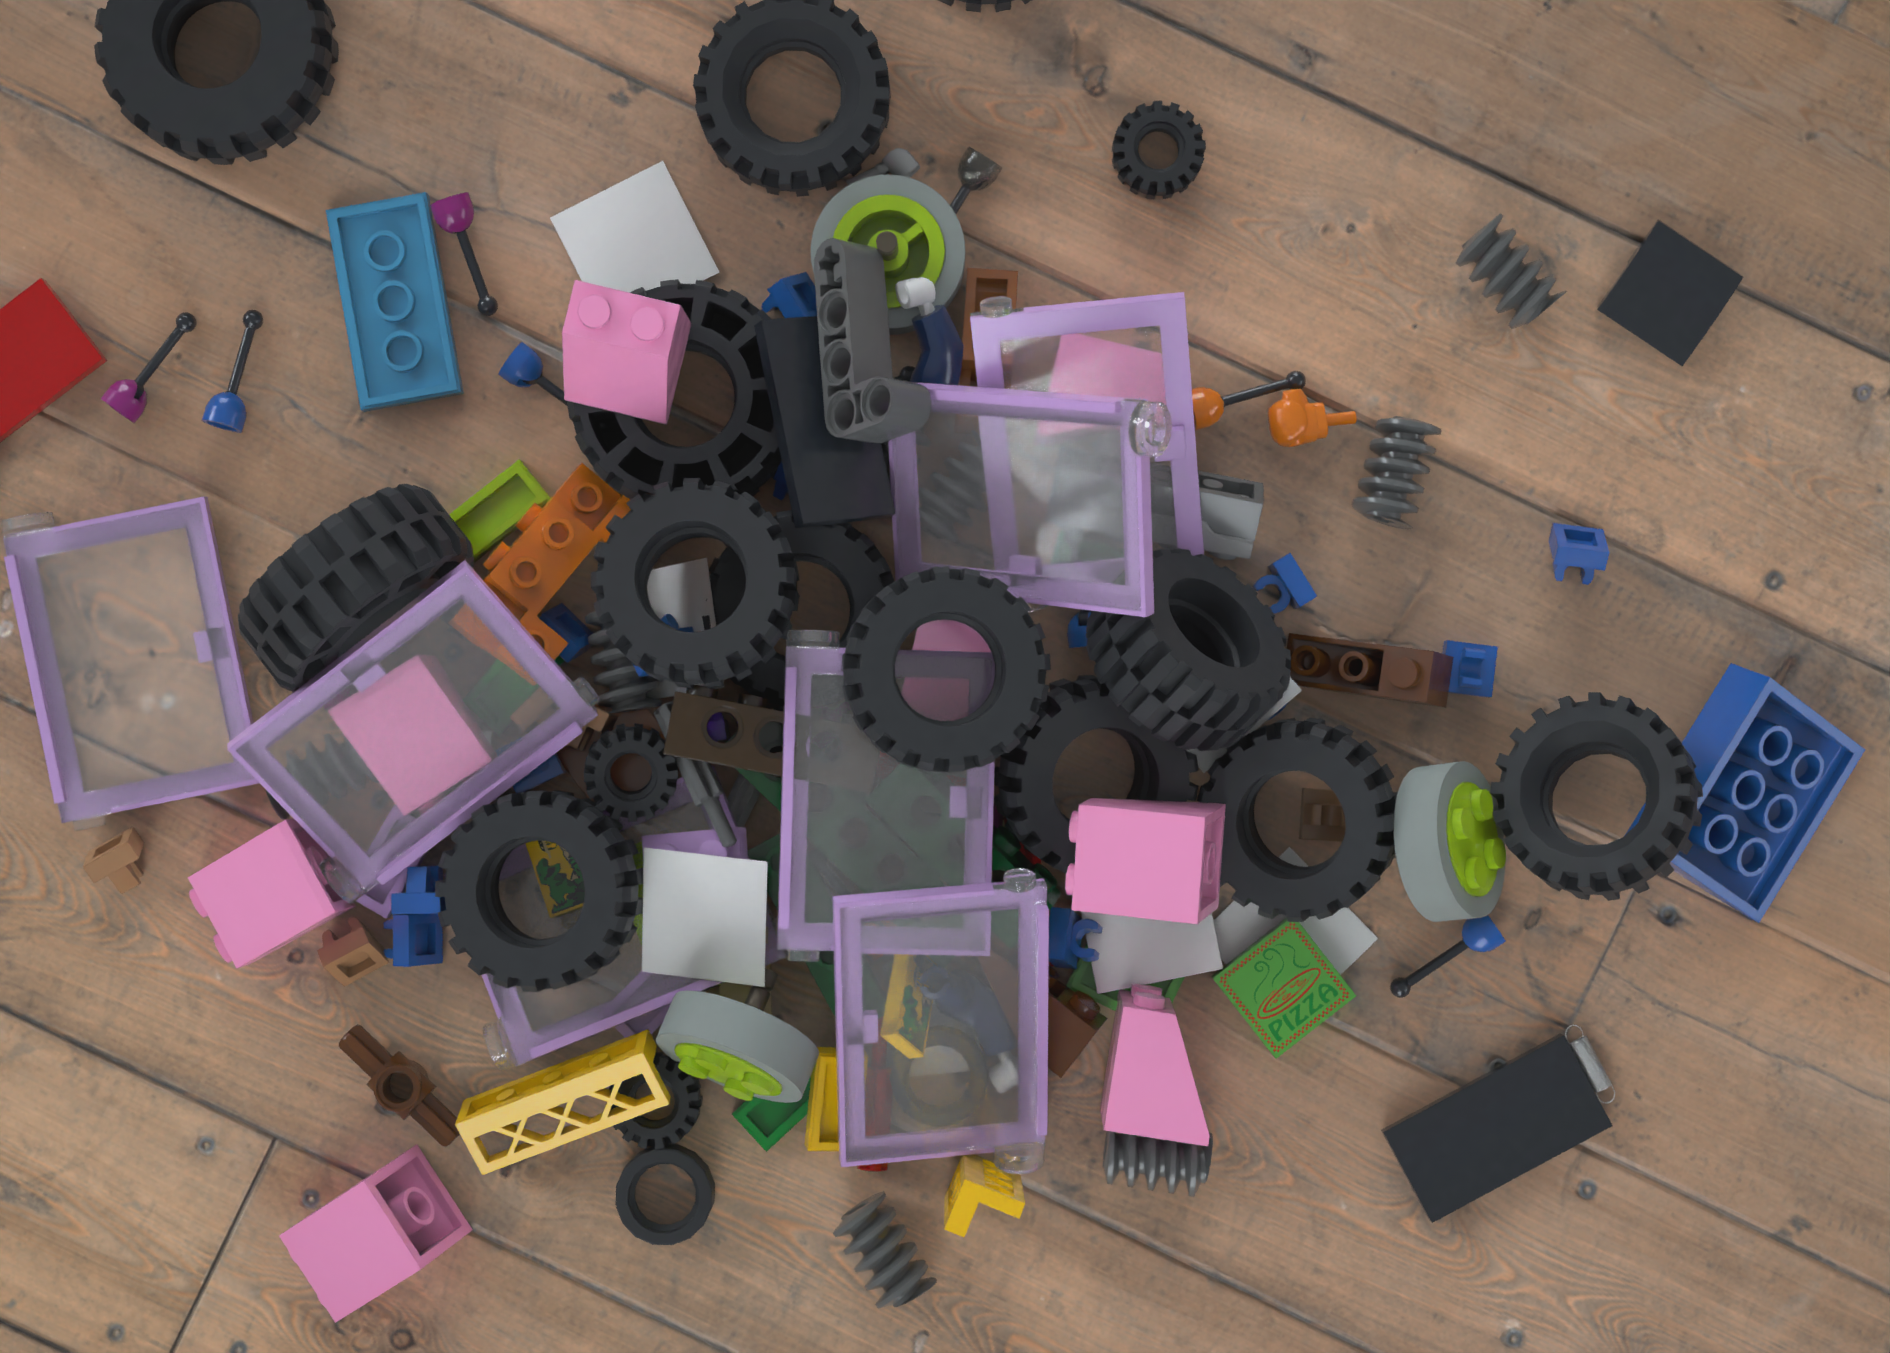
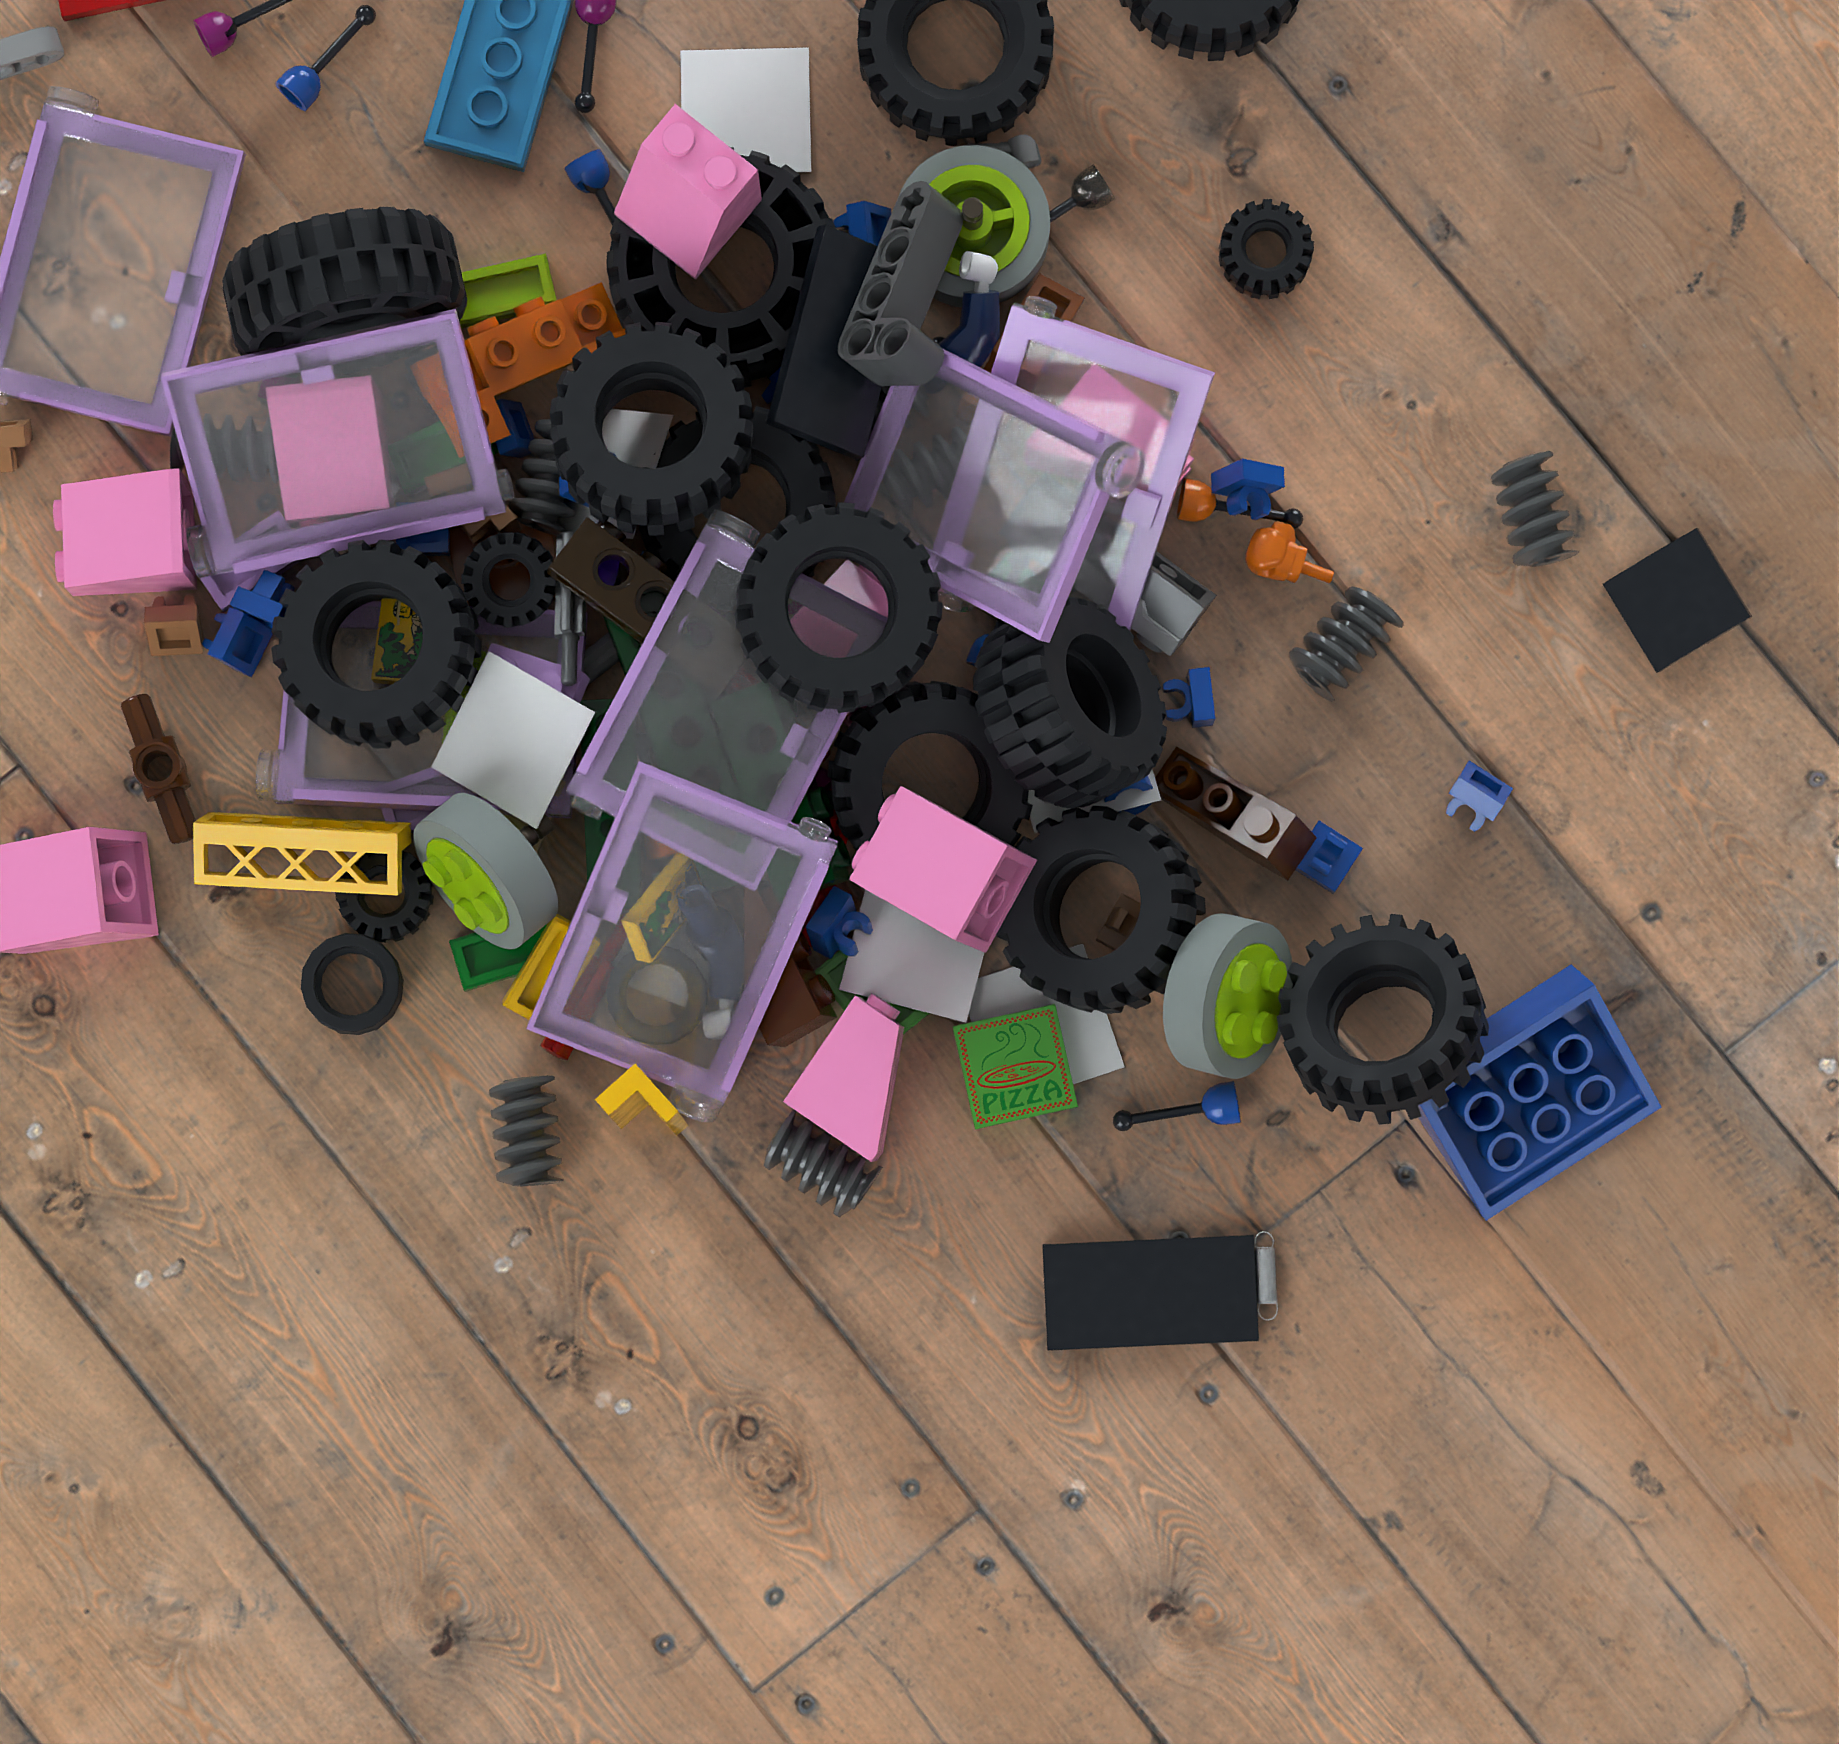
camera: 25 degrees right, 5 degrees down
(1245, 372) = (1248, 482): none -> blue tile

